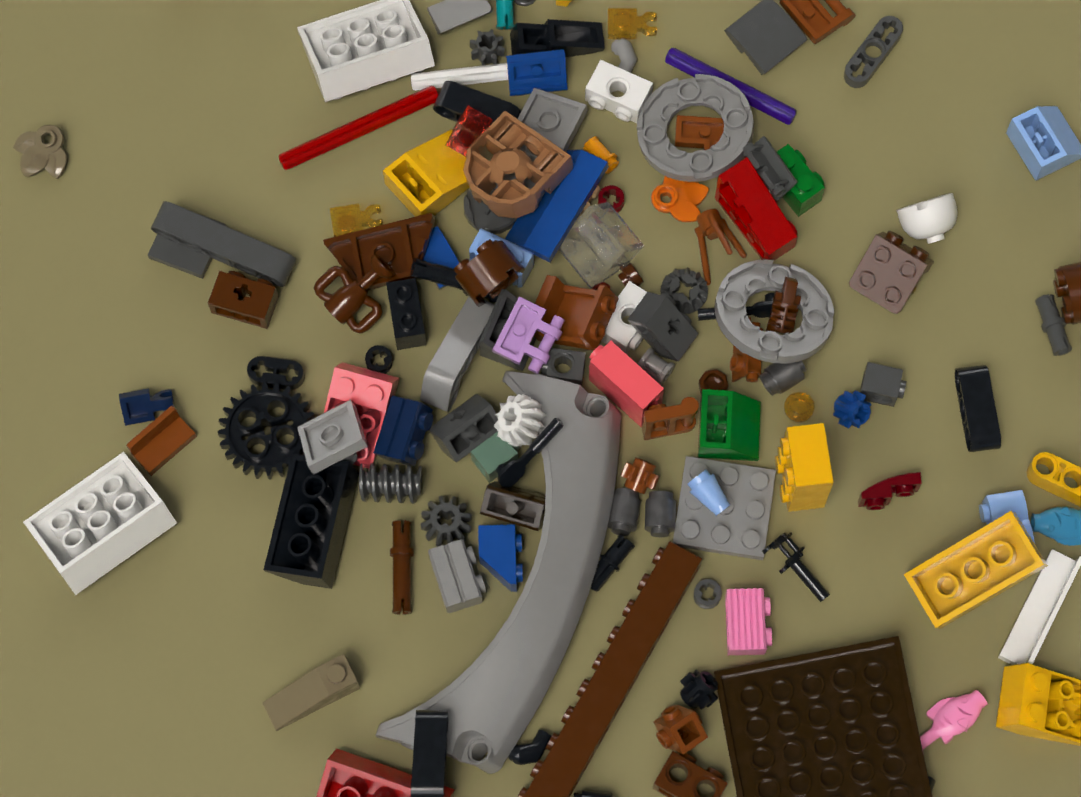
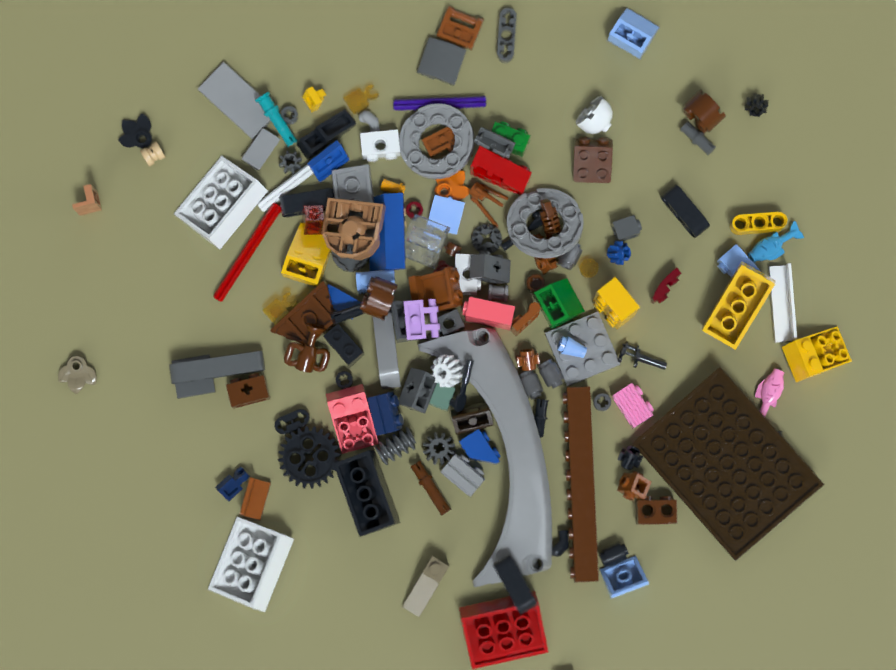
camera: 30 degrees left, 10 degrees up
(332, 437) = (351, 442): light grey tile -> none
(652, 225) = (447, 212): none -> light blue piece

